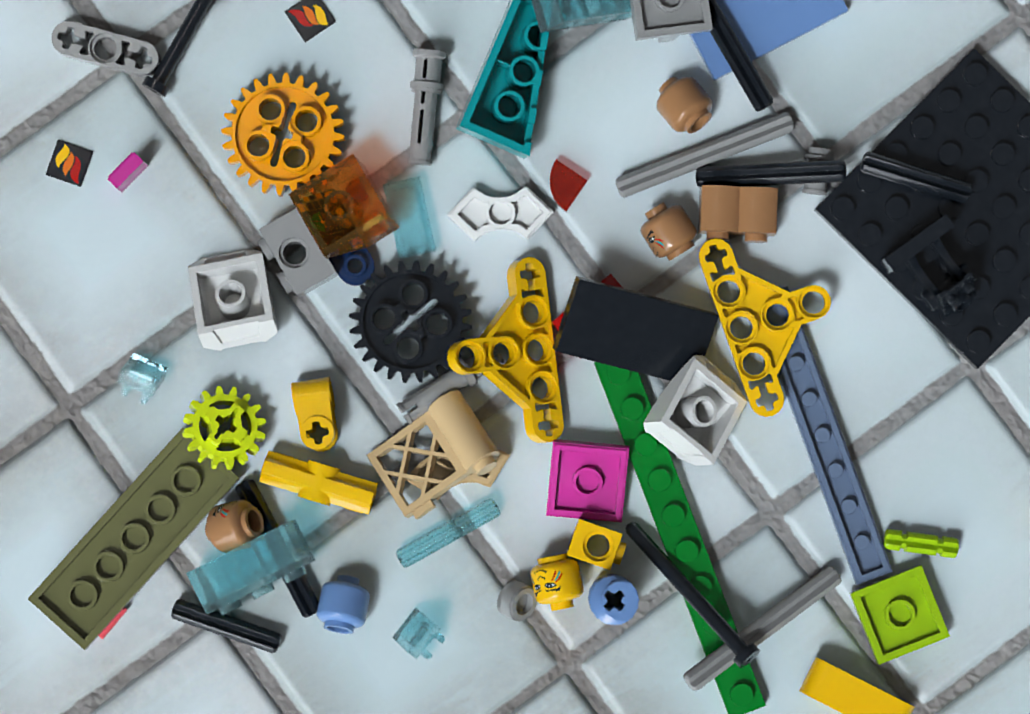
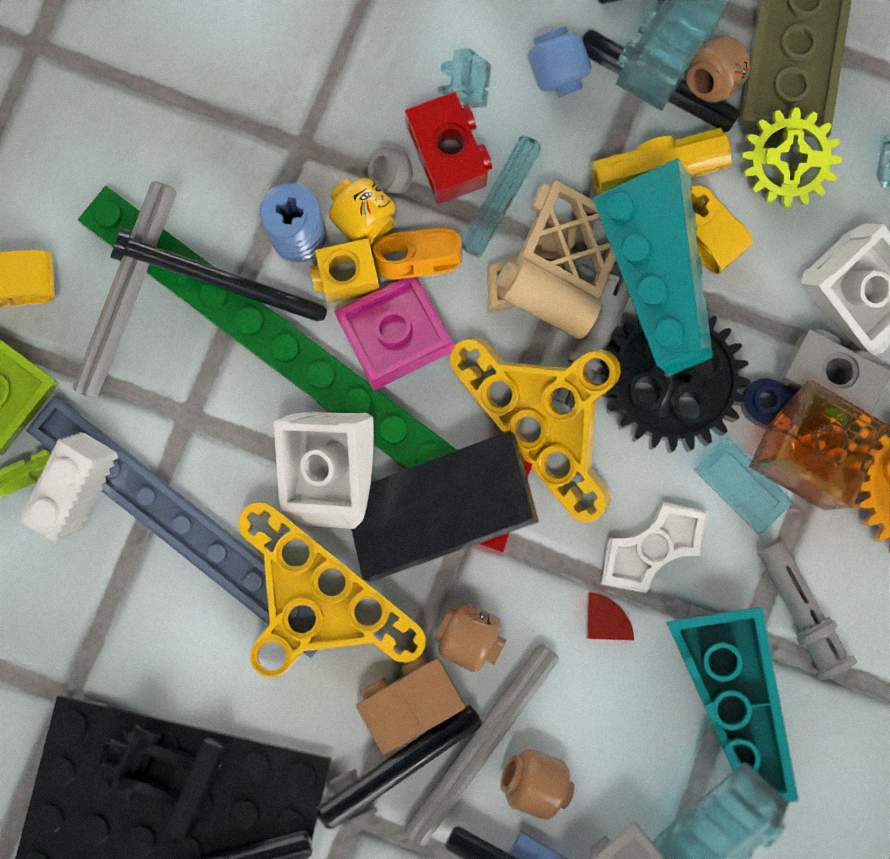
camera: 145 degrees right, 5 degrees down
(375, 404) = (657, 252): none -> teal wedge
(468, 614) = (448, 173): none -> red brick
(526, 523) = (426, 251): none -> light orange piece
(884, 507) = (68, 486): none -> white brick

